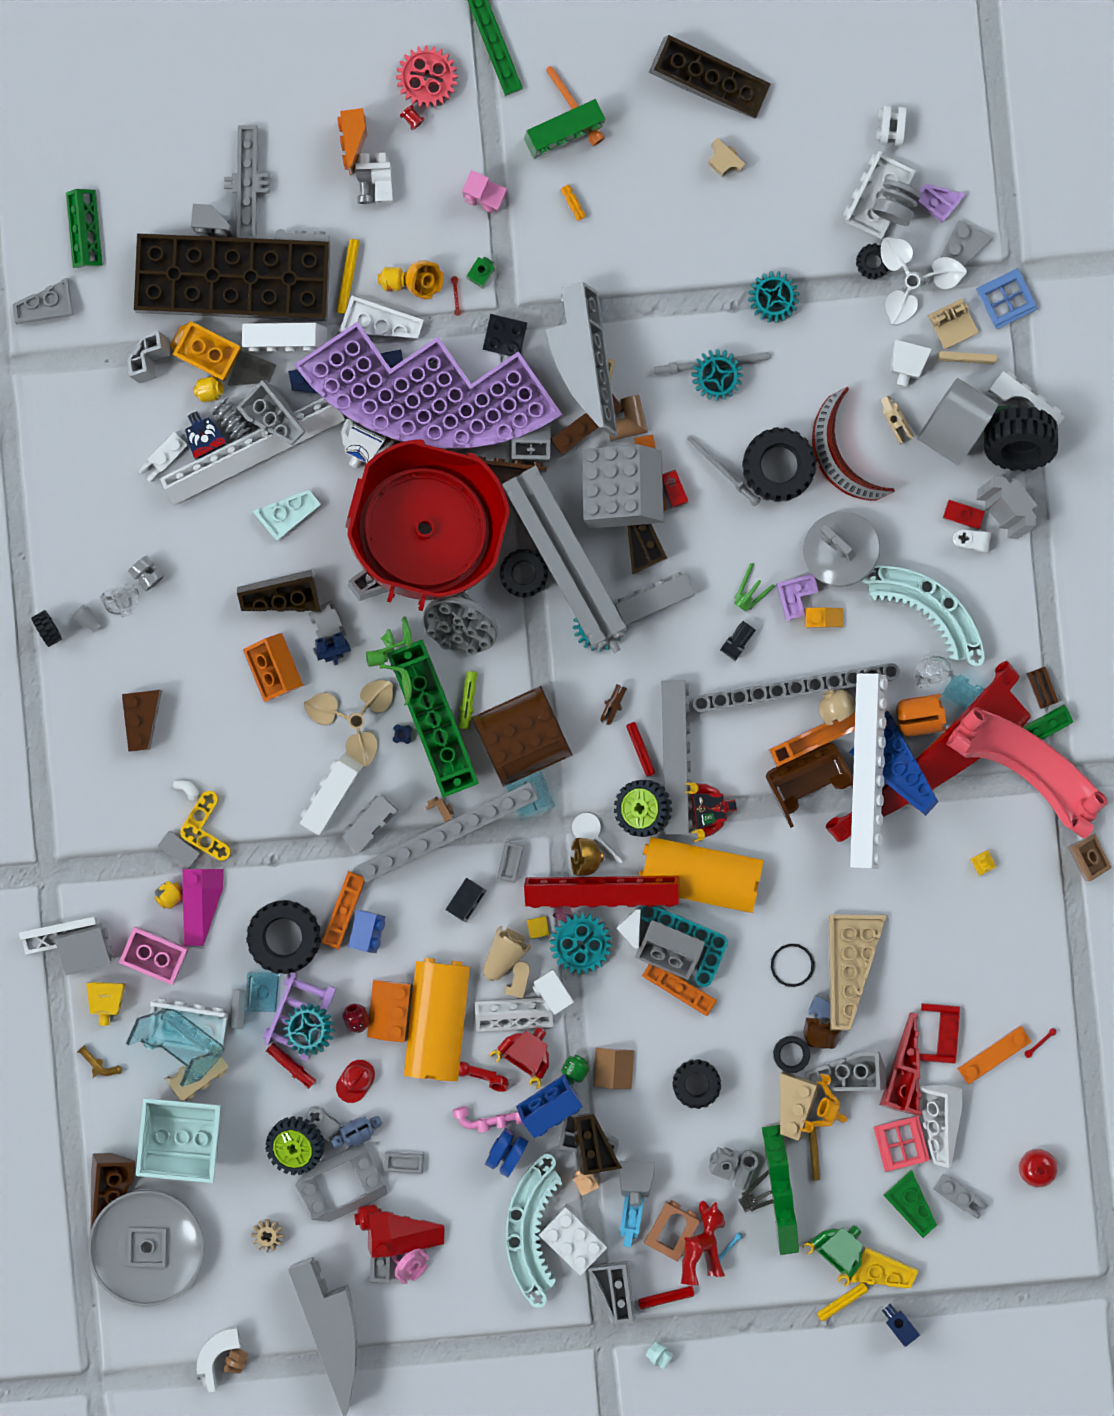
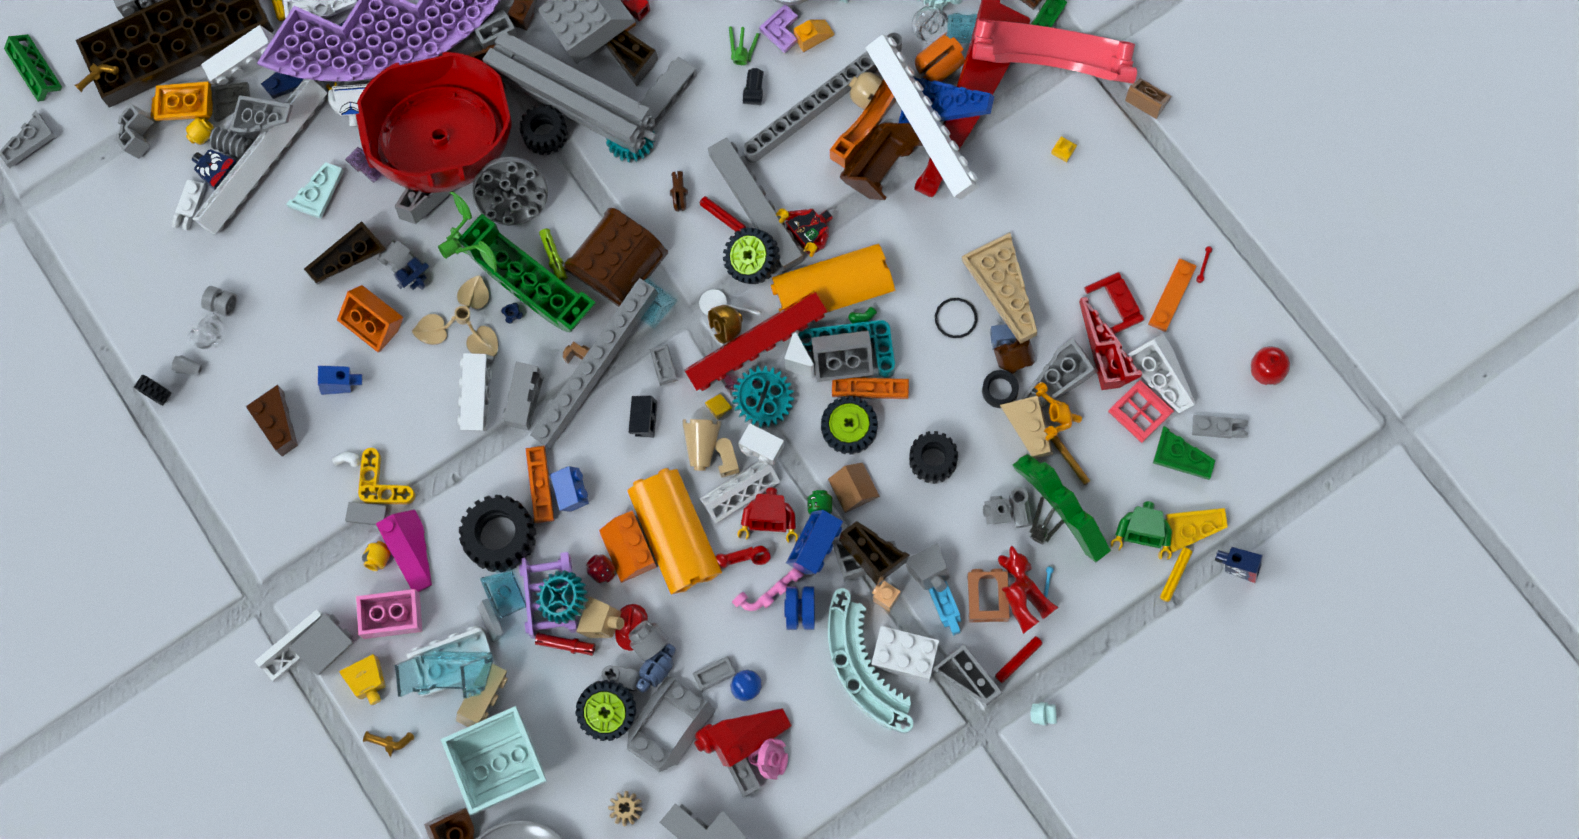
camera: 20 degrees left, 15 degrees down
(139, 282) = (95, 74): none -> pearl gold piece
(207, 709) = (337, 379): none -> blue torso
(332, 1064) = (599, 620): none -> tan torso
(340, 505) = (359, 163): none -> clear purple slope
(362, 1106) = (647, 639): none -> light grey piece
(424, 1188) = (746, 685): none -> blue hair
(633, 1024) = (849, 438): none -> wheel
(708, 919) = (862, 317): none -> green arm

